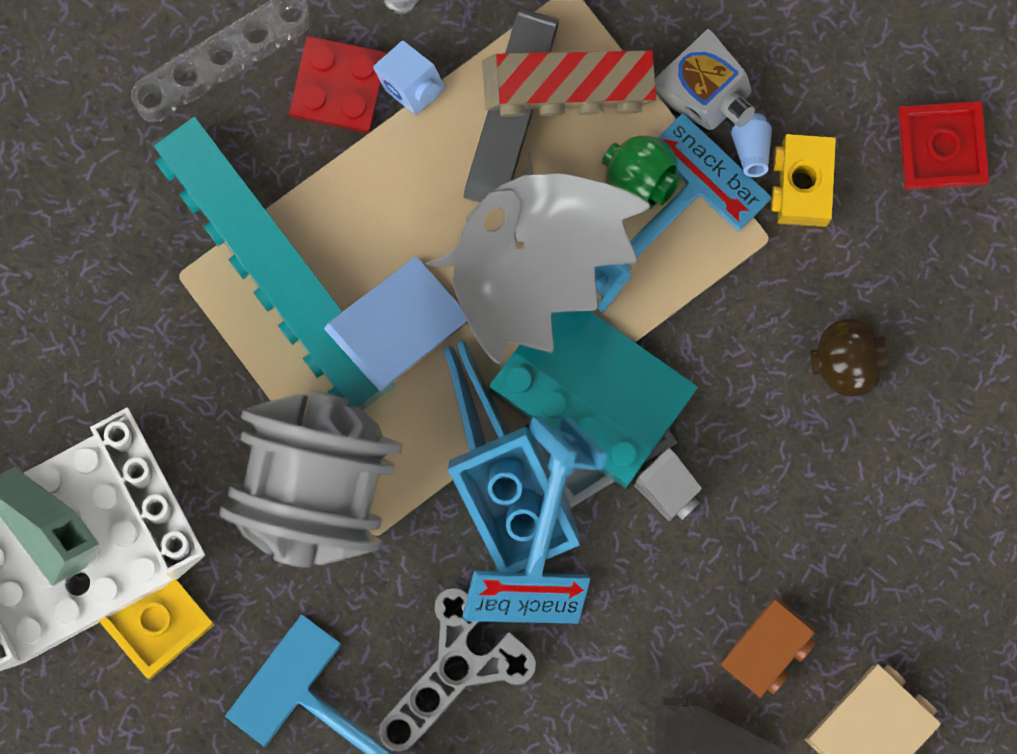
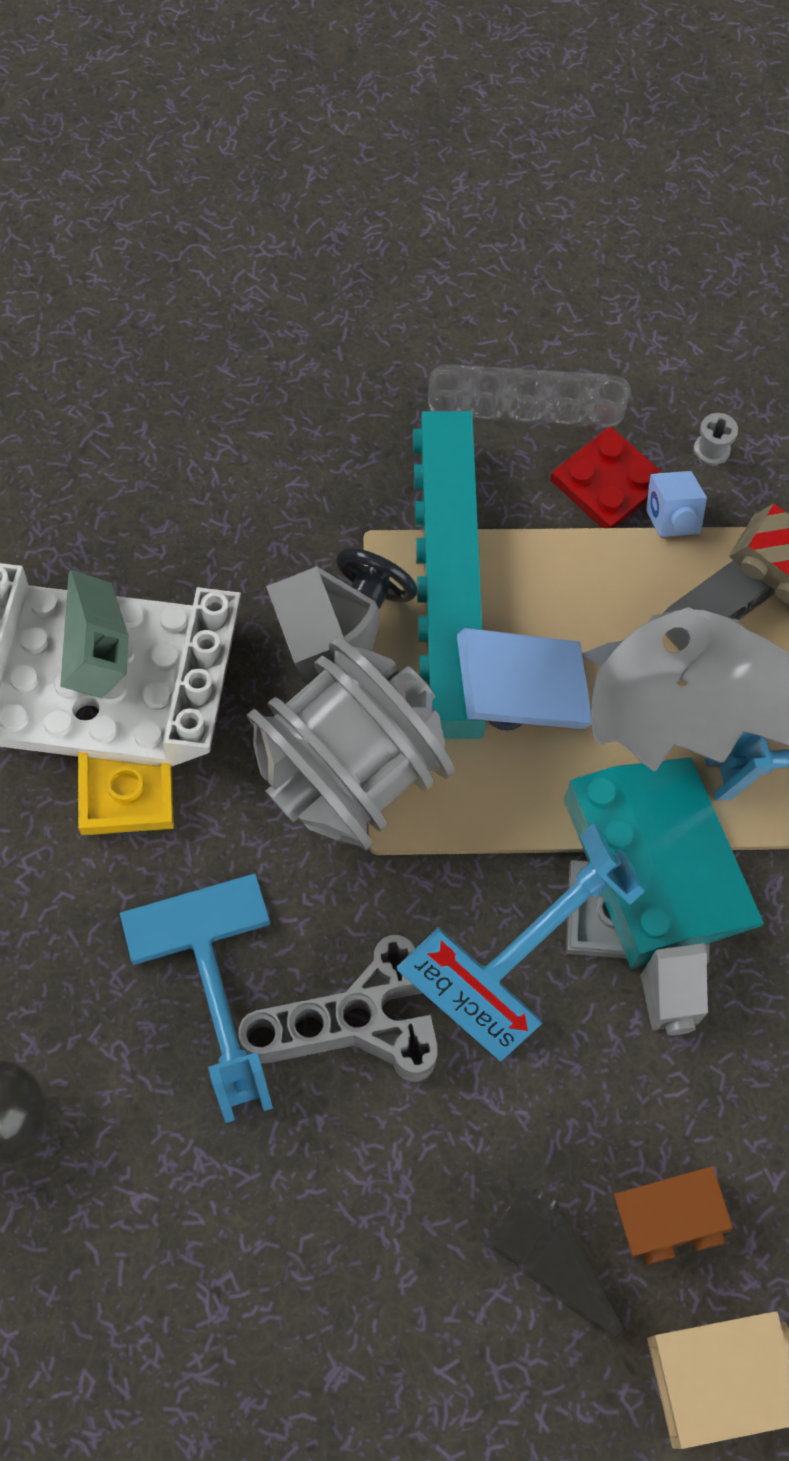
camera: 35 degrees right, 15 degrees down
(215, 382) = (320, 607): none -> light grey piece
(503, 479) = (524, 871): dark azure slope -> none

